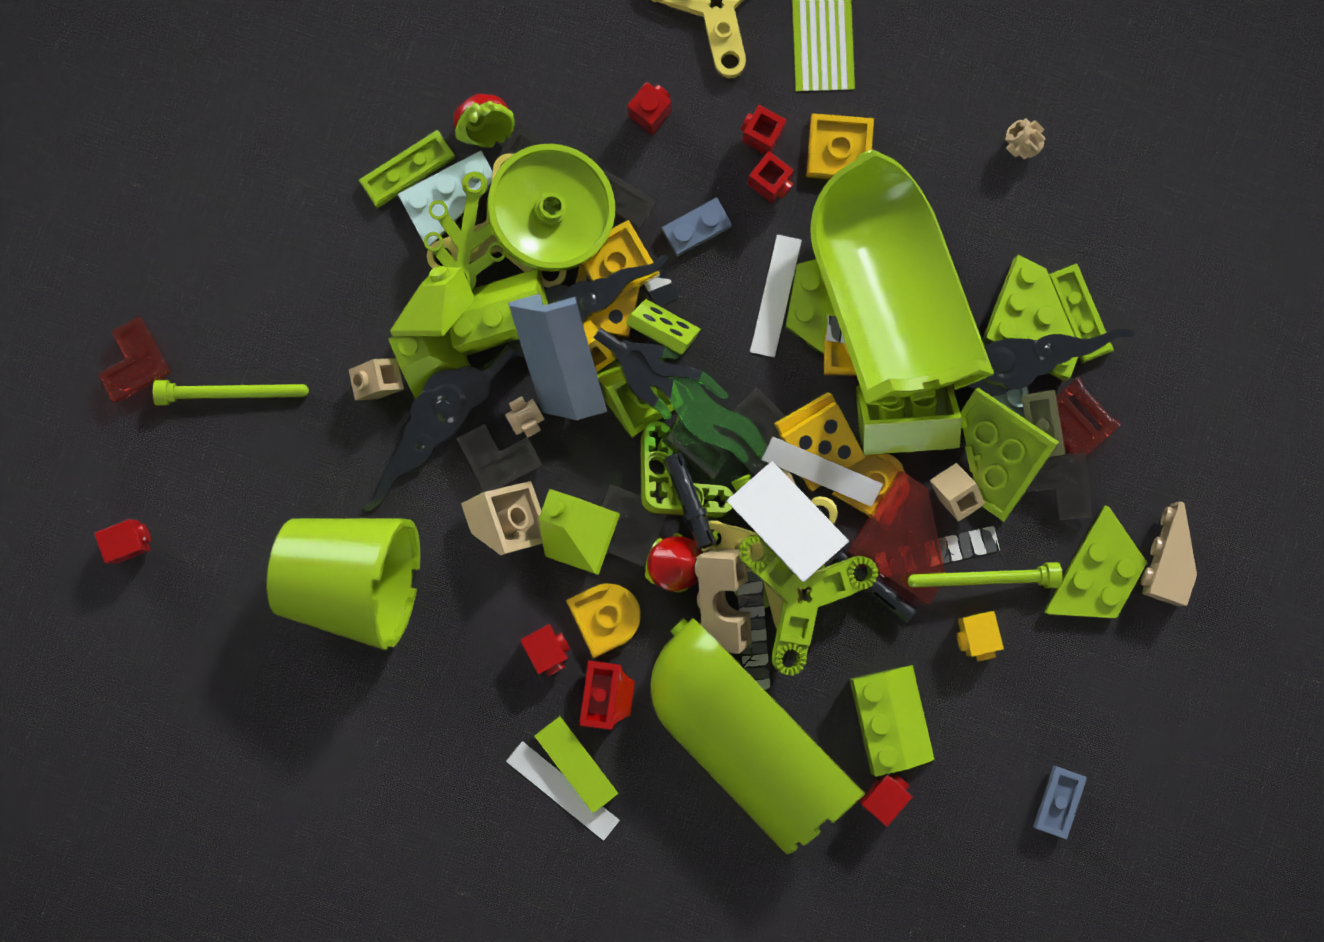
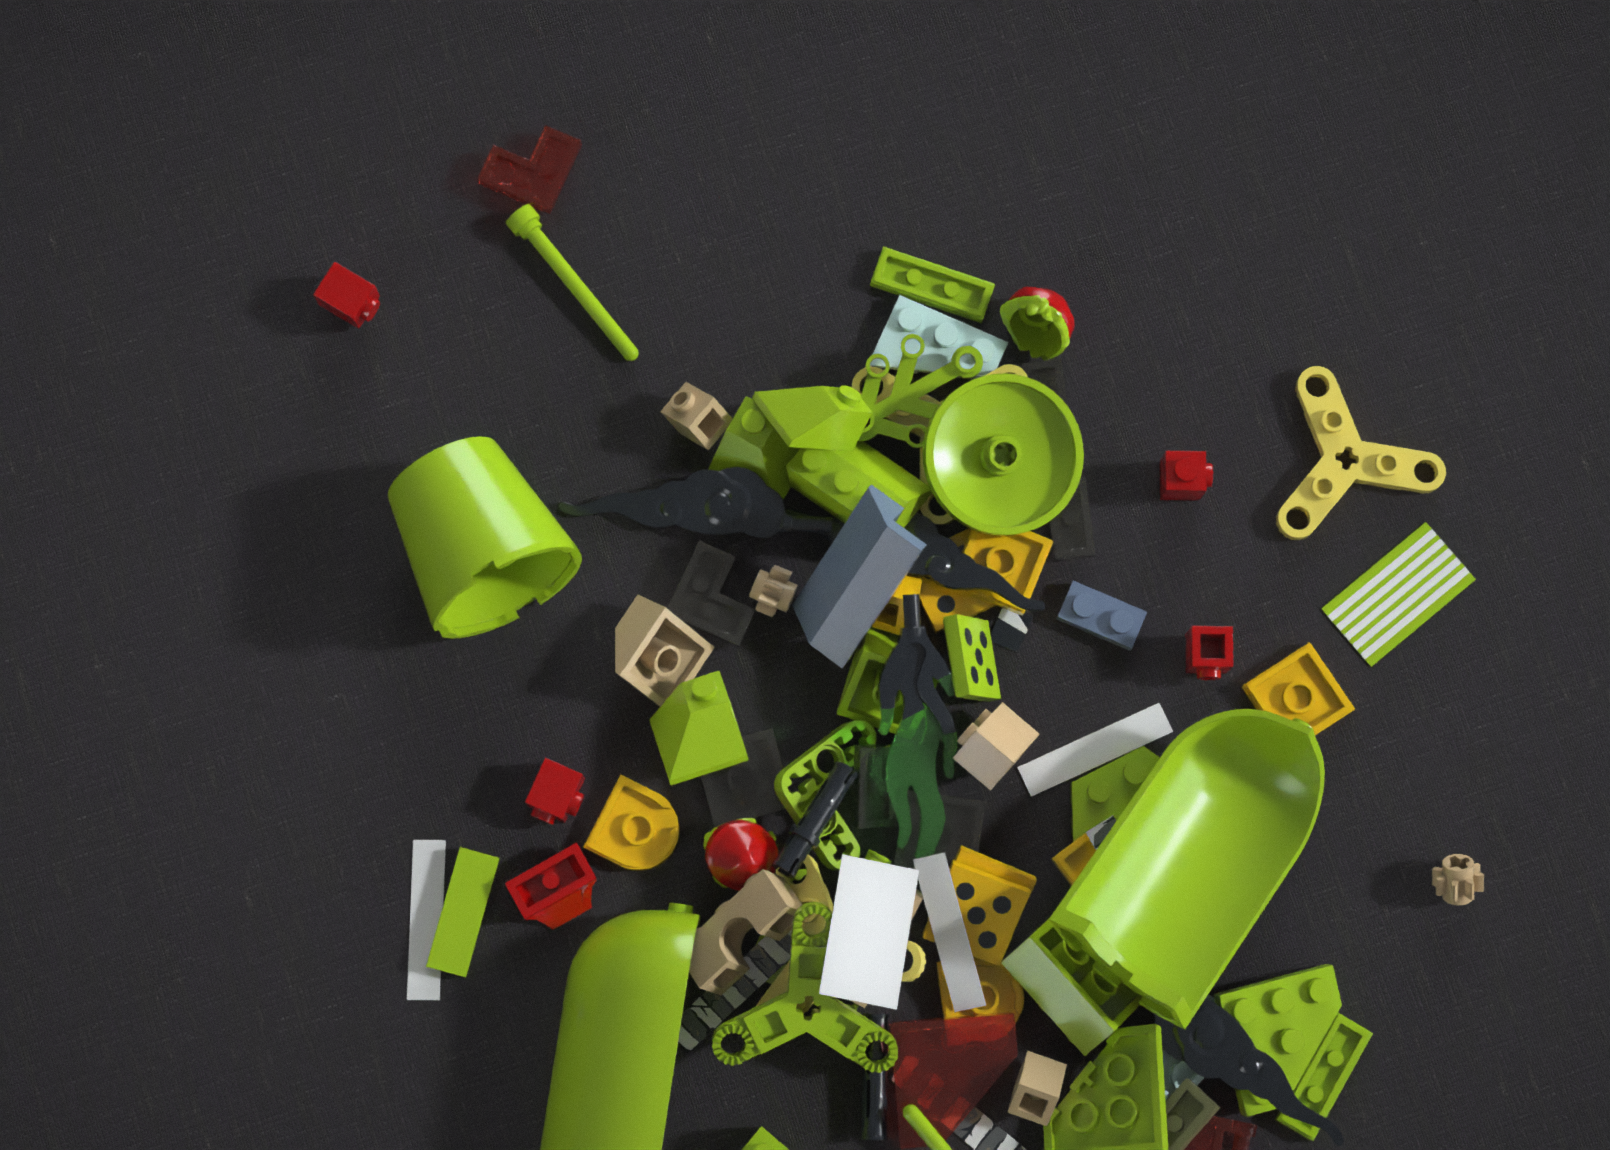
camera: 45 degrees right, 5 degrees down
(728, 354) = (994, 744): none -> tan brick
(762, 129) = (1251, 605): red brick -> none

